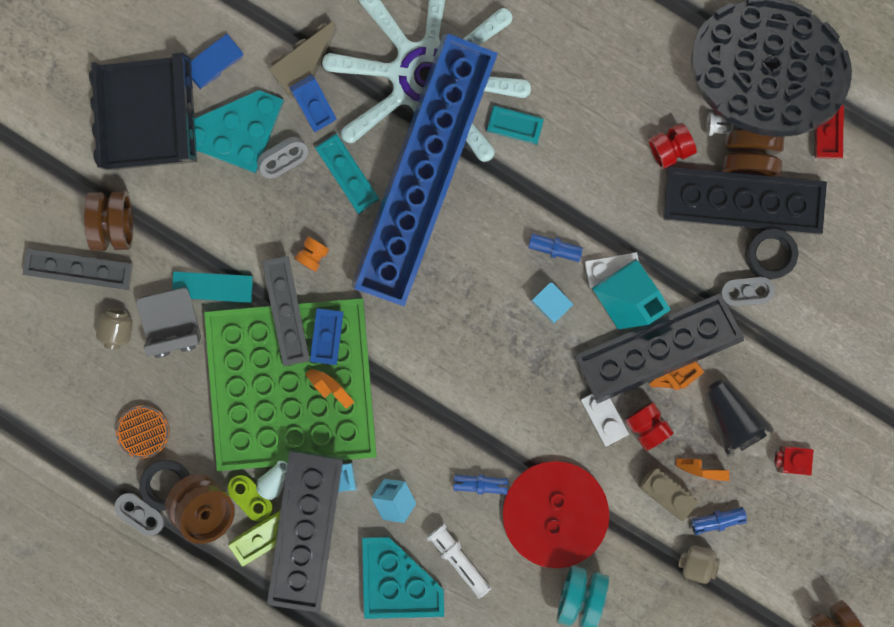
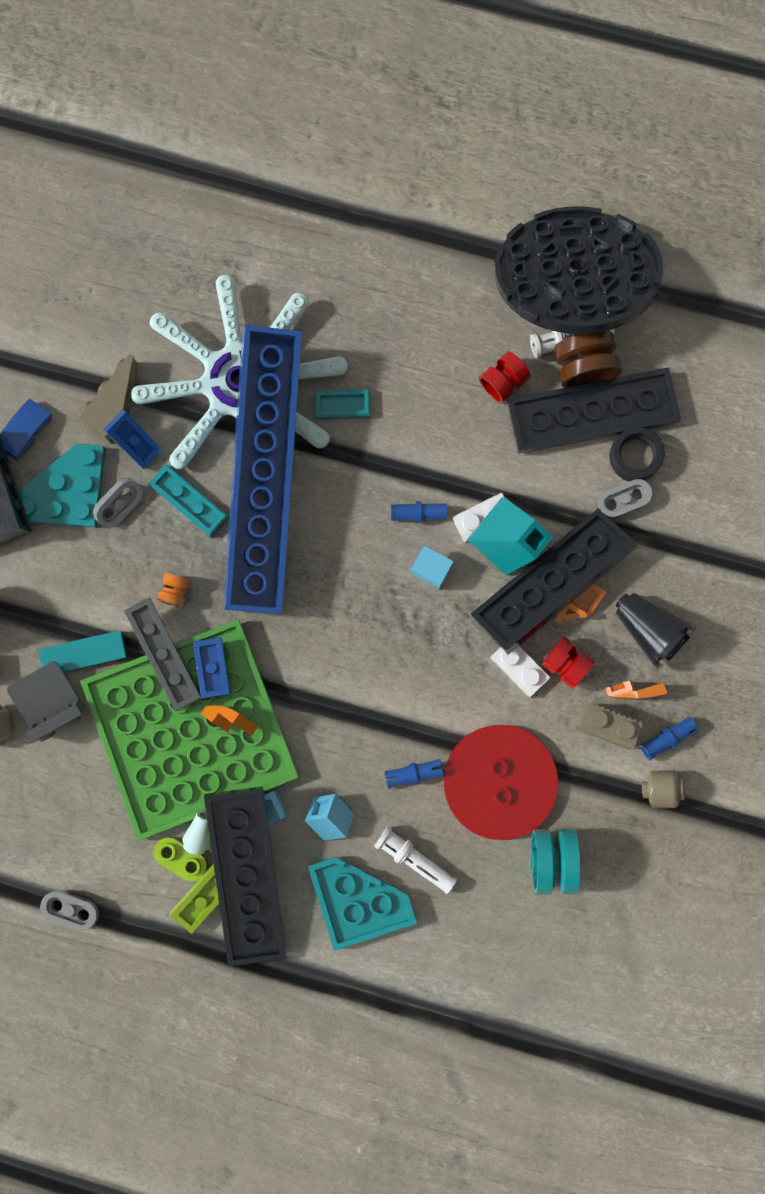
camera: 10 degrees left, 5 degrees down
(142, 431) = (50, 823): tile -> none
(149, 472) = (67, 866): black tyre -> none
(199, 509) = (128, 886): reddish brown wheel -> none
(794, 460) = (726, 654): red bracket -> none
(830, 138) = (658, 324): red plate -> none

